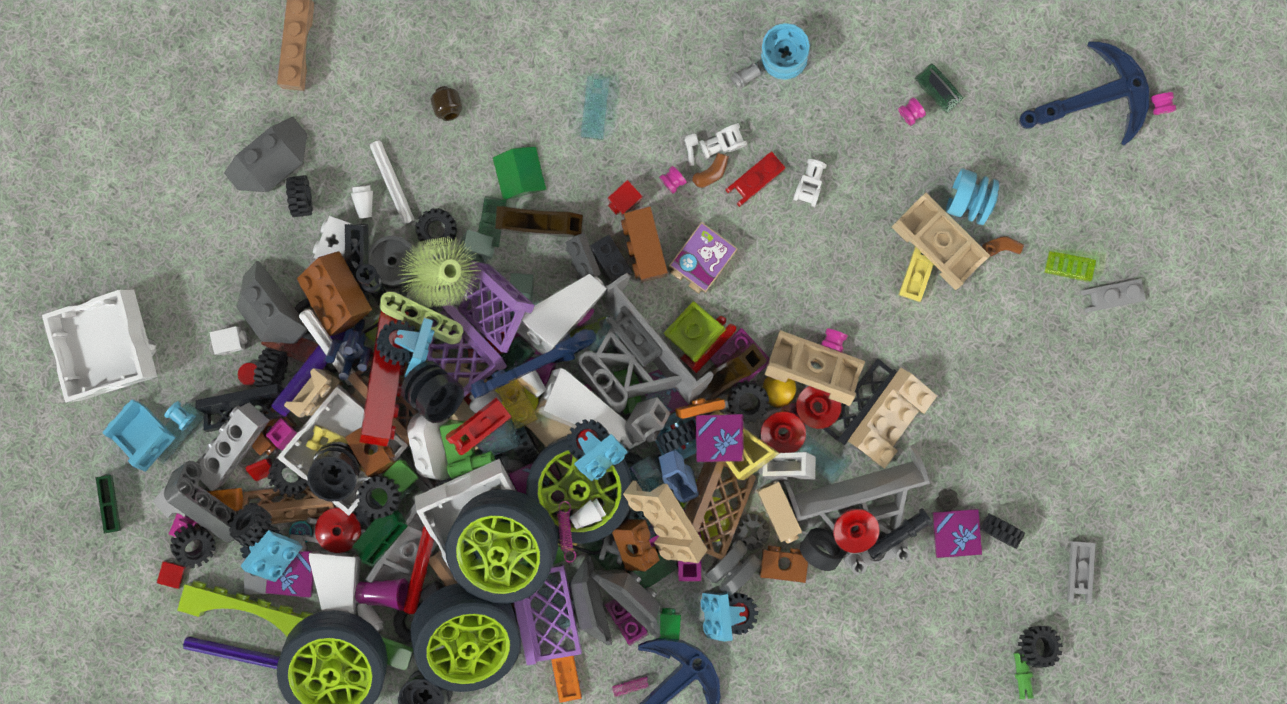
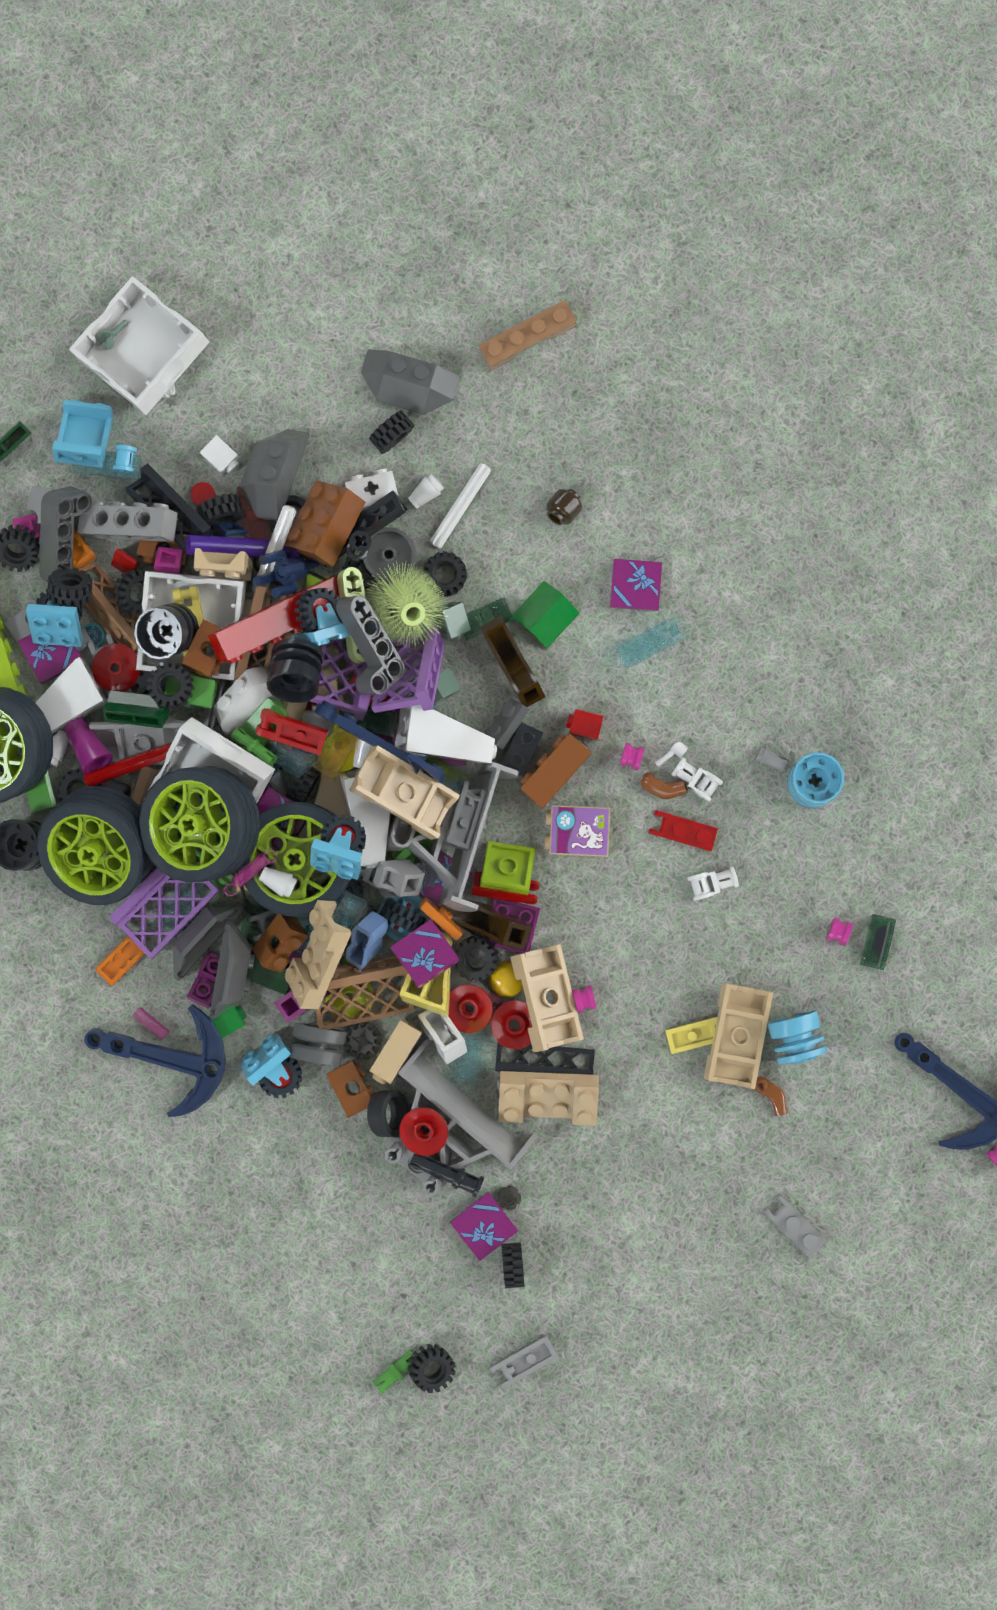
camera: 55 degrees right, 0 degrees up
(77, 366) = (108, 336): none -> sand green hand
(289, 371) = (229, 529): none -> dark blue slope
(453, 317) = (367, 633): none -> dark grey beam
(543, 89) = (636, 585): none -> magenta tile
(583, 371) = (403, 793): none -> tan piece
(1071, 259) = (795, 1191): clear neon green slope -> none

